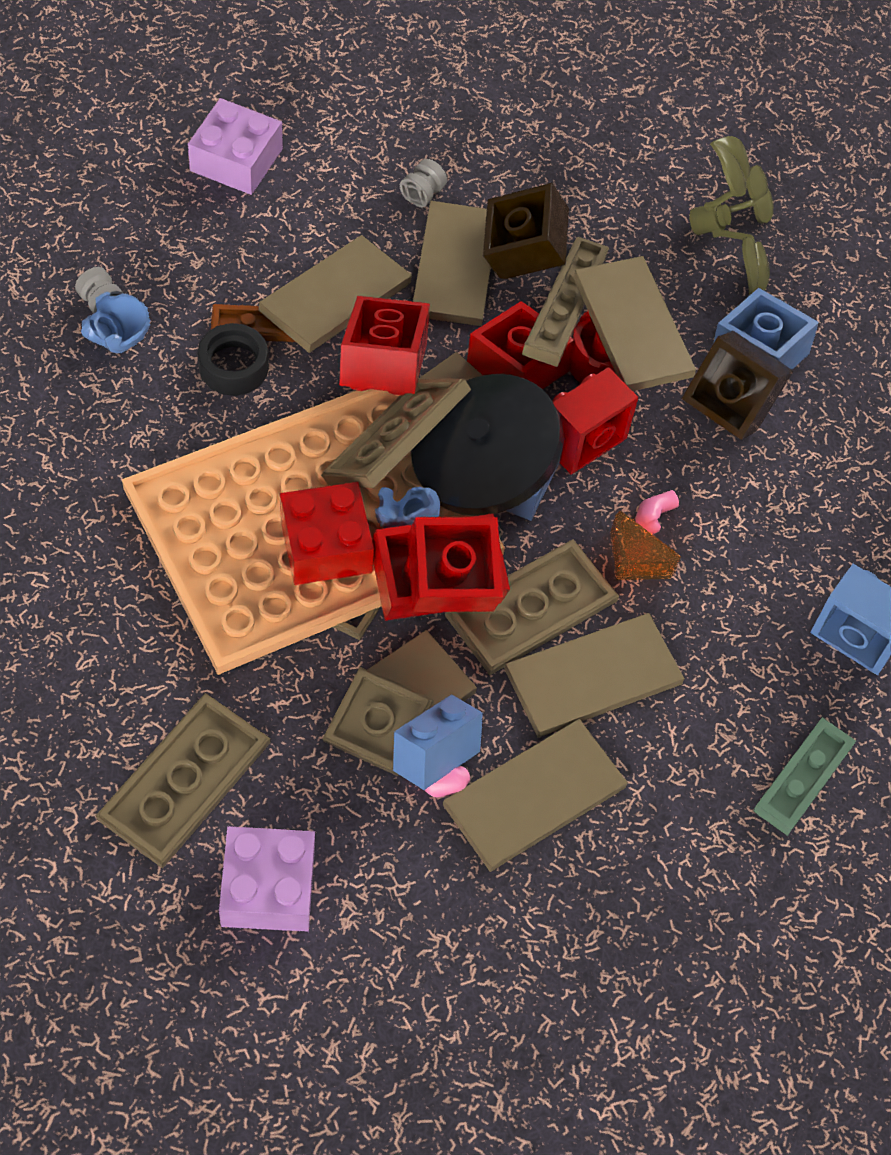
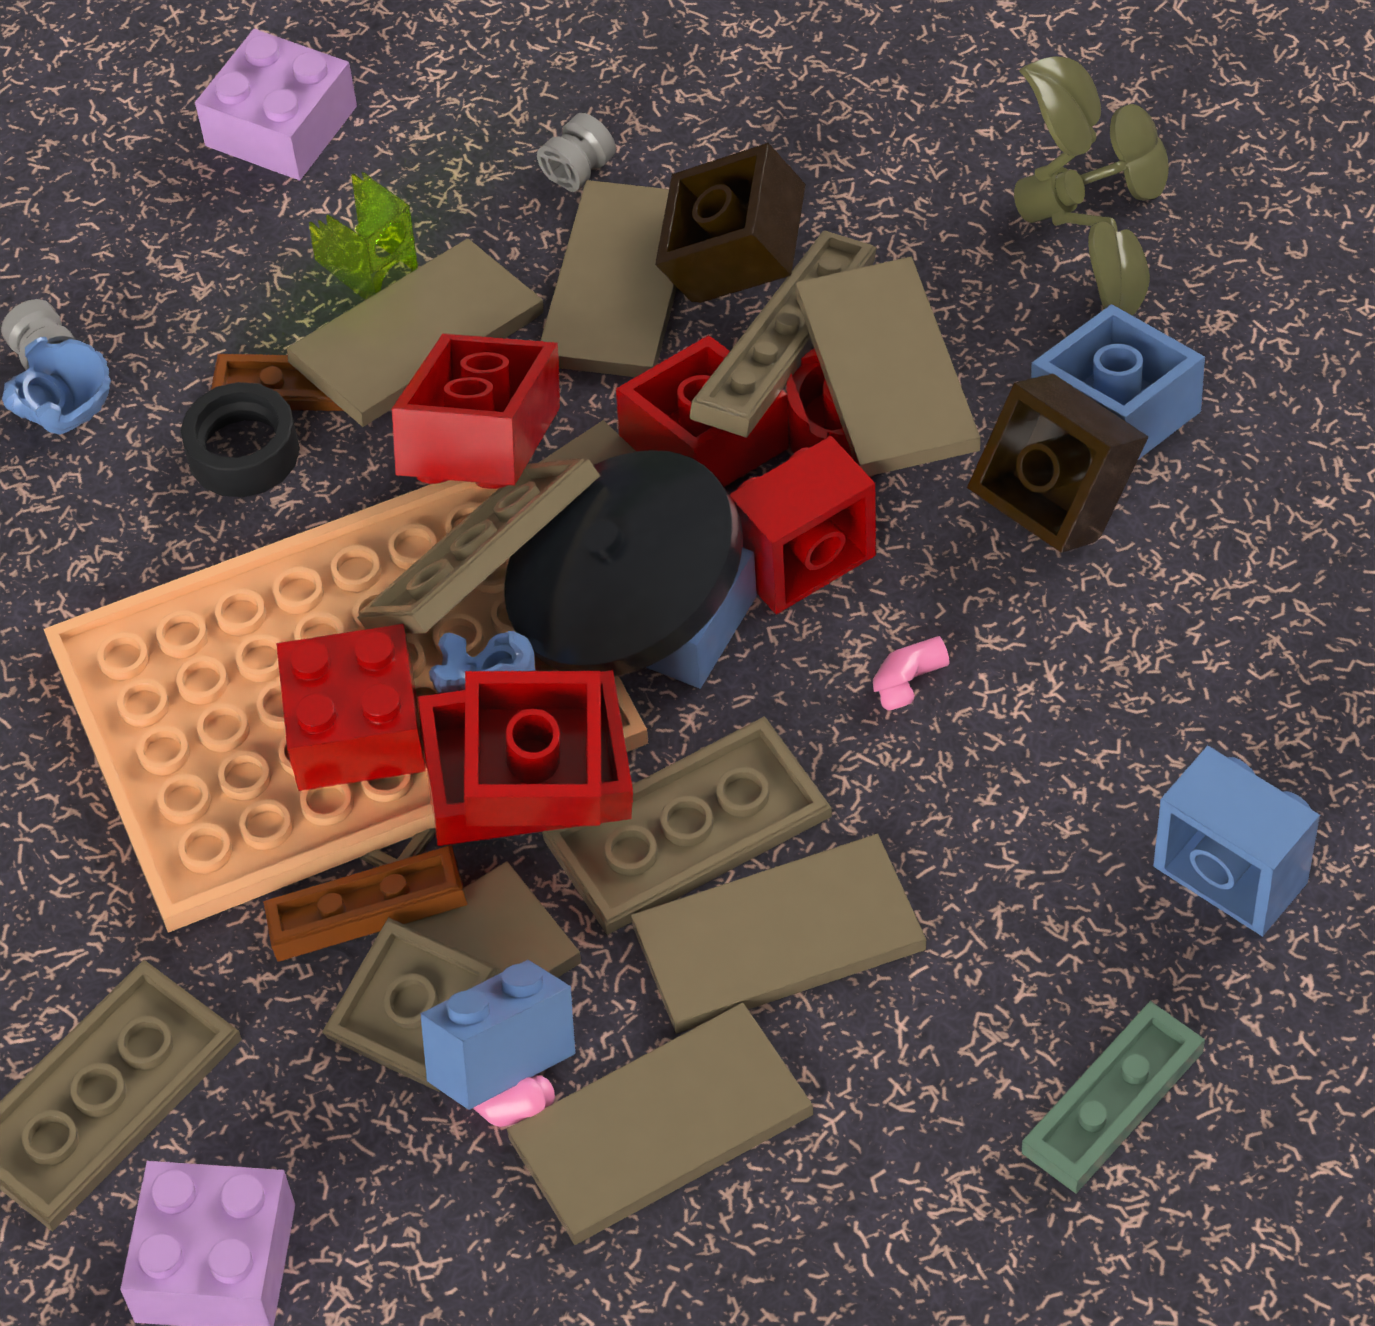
camera: 15 degrees right, 5 degrees down
(309, 226) = (382, 221): none -> clear neon green piece
(341, 656) = (363, 903): none -> dark orange tile
(639, 553) = (872, 738): clear orange slope -> none

